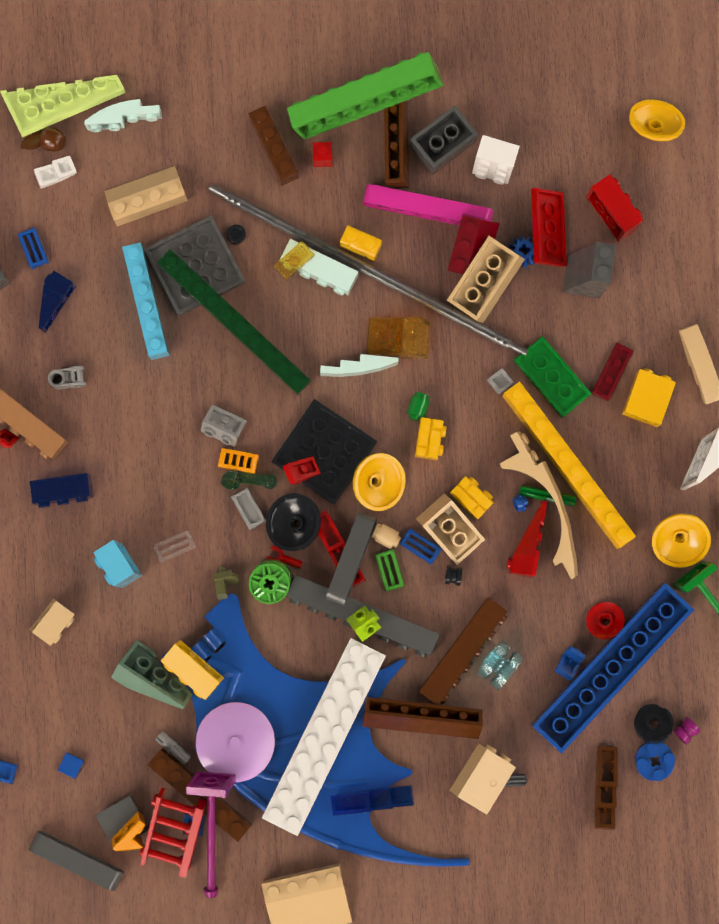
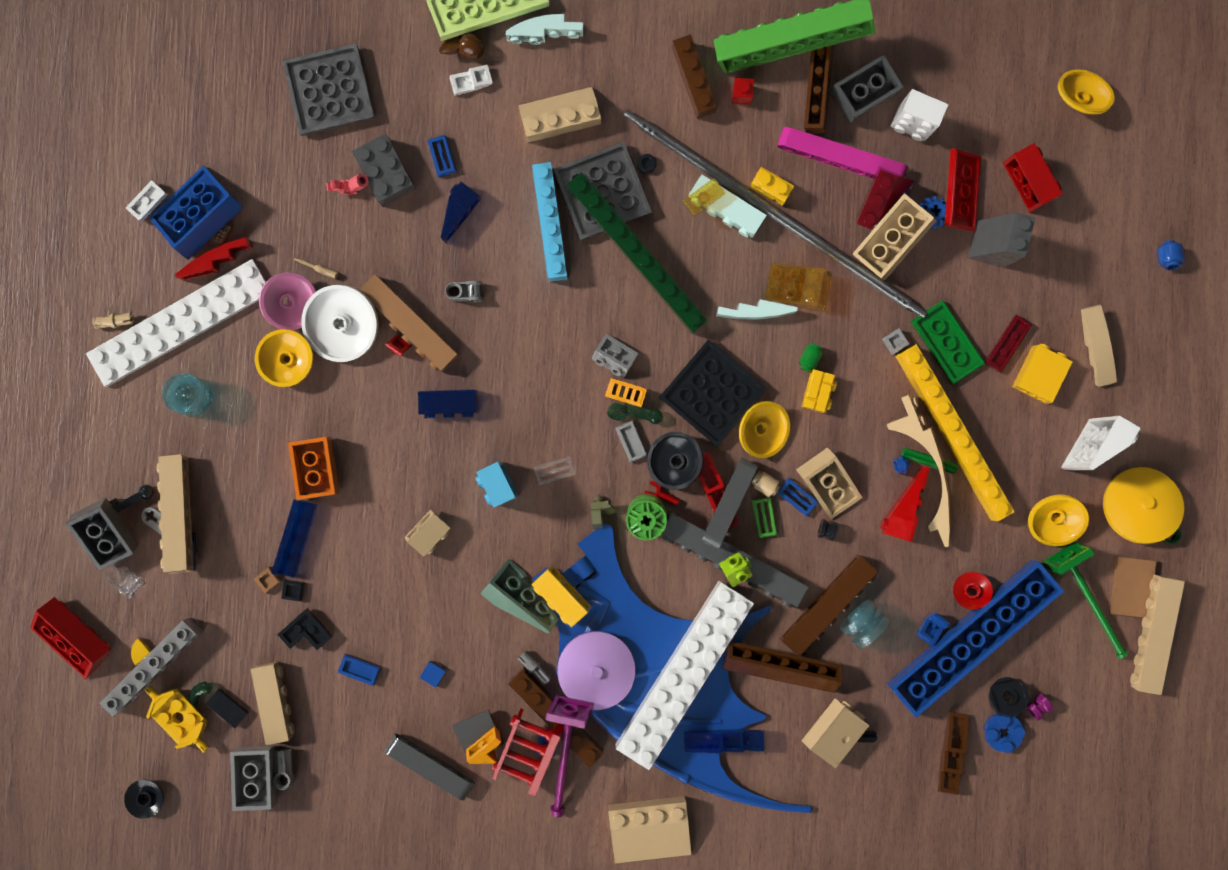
camera: 10 degrees right, 5 degrees up
(301, 470) = (689, 410): red slope -> none
(471, 497) = (854, 454): yellow brick -> none

